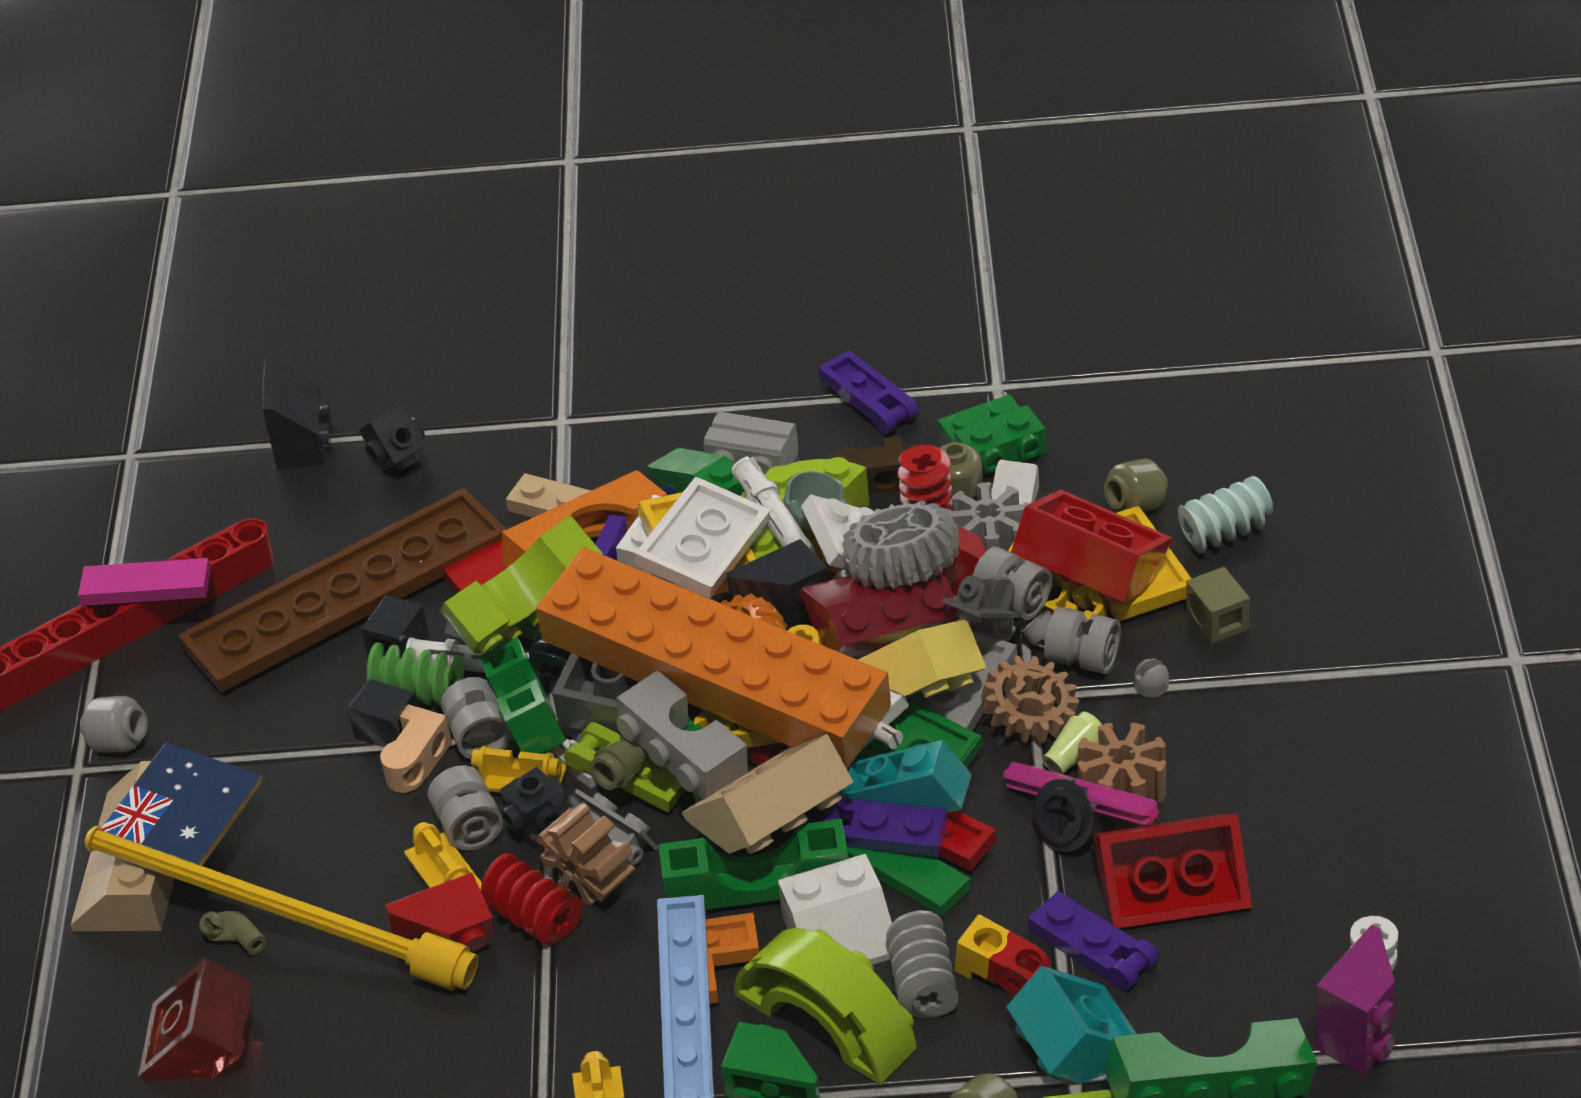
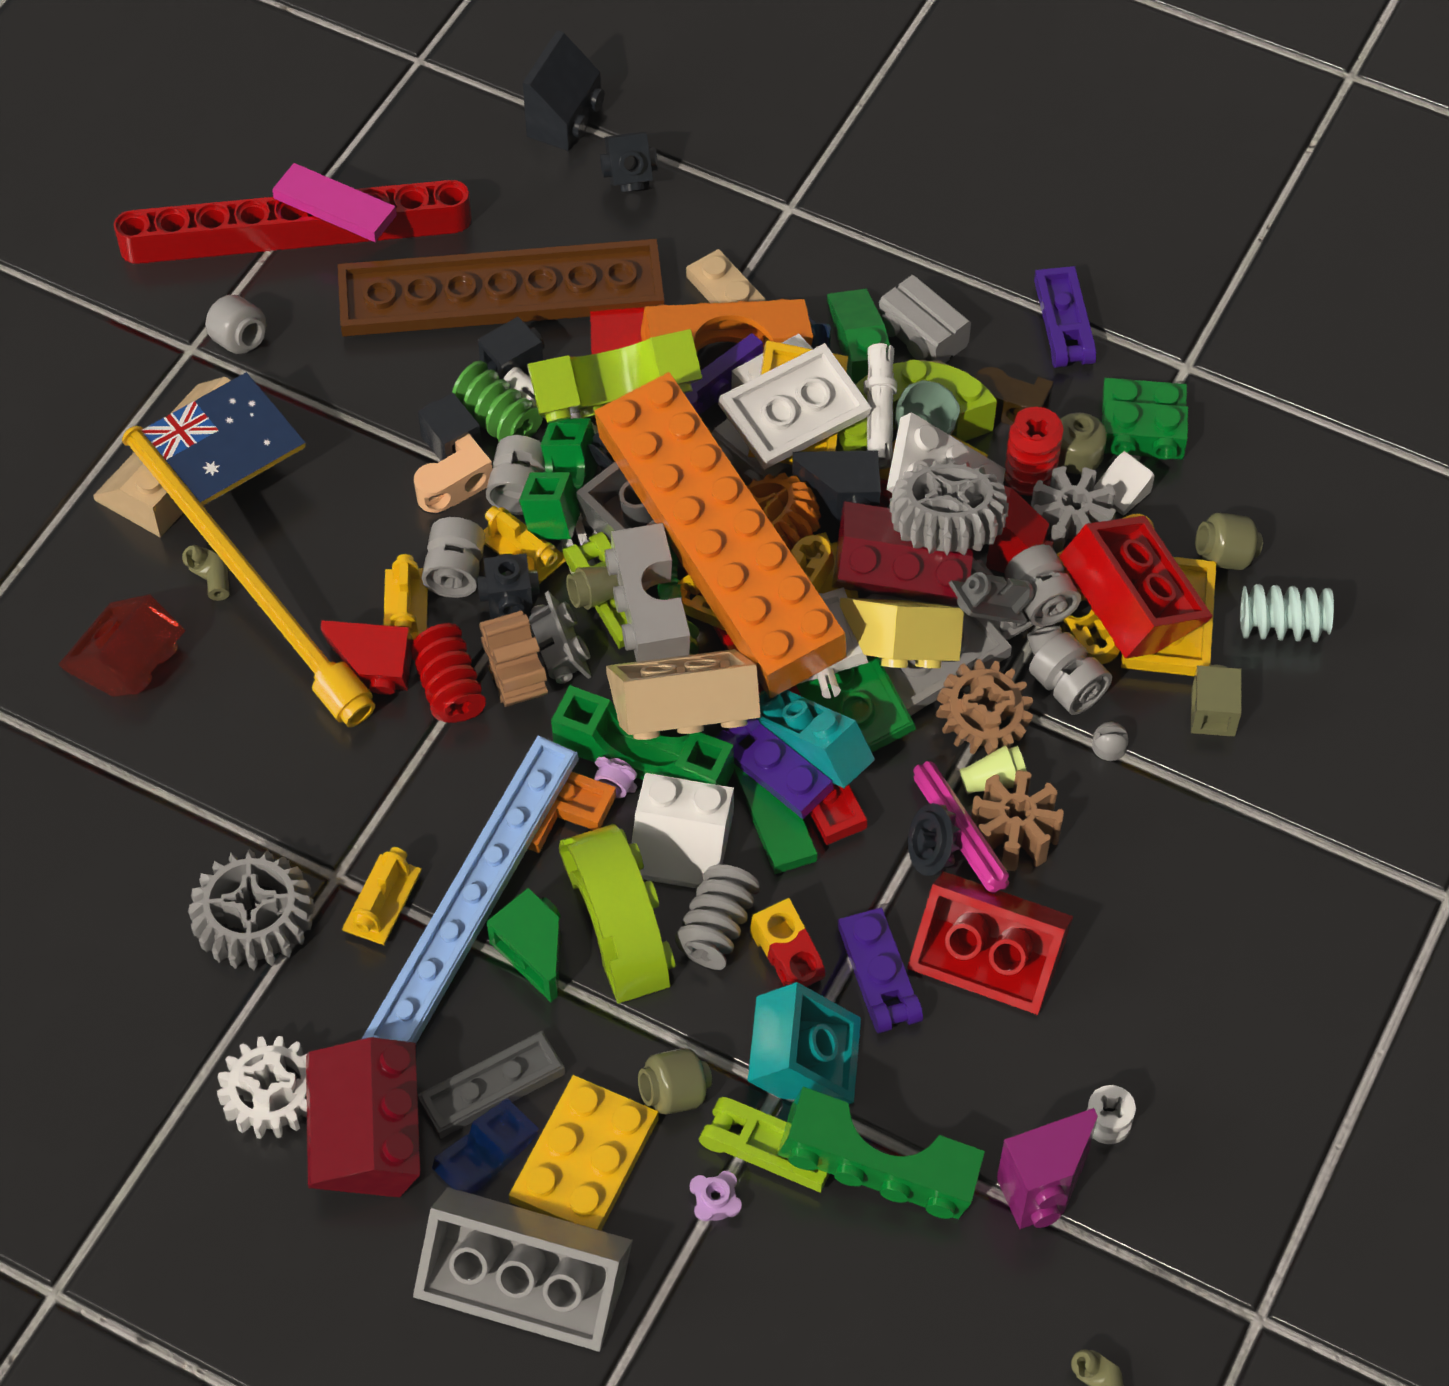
camera: 25 degrees right, 15 degrees up
(744, 901) = (617, 774): none -> lavender plate

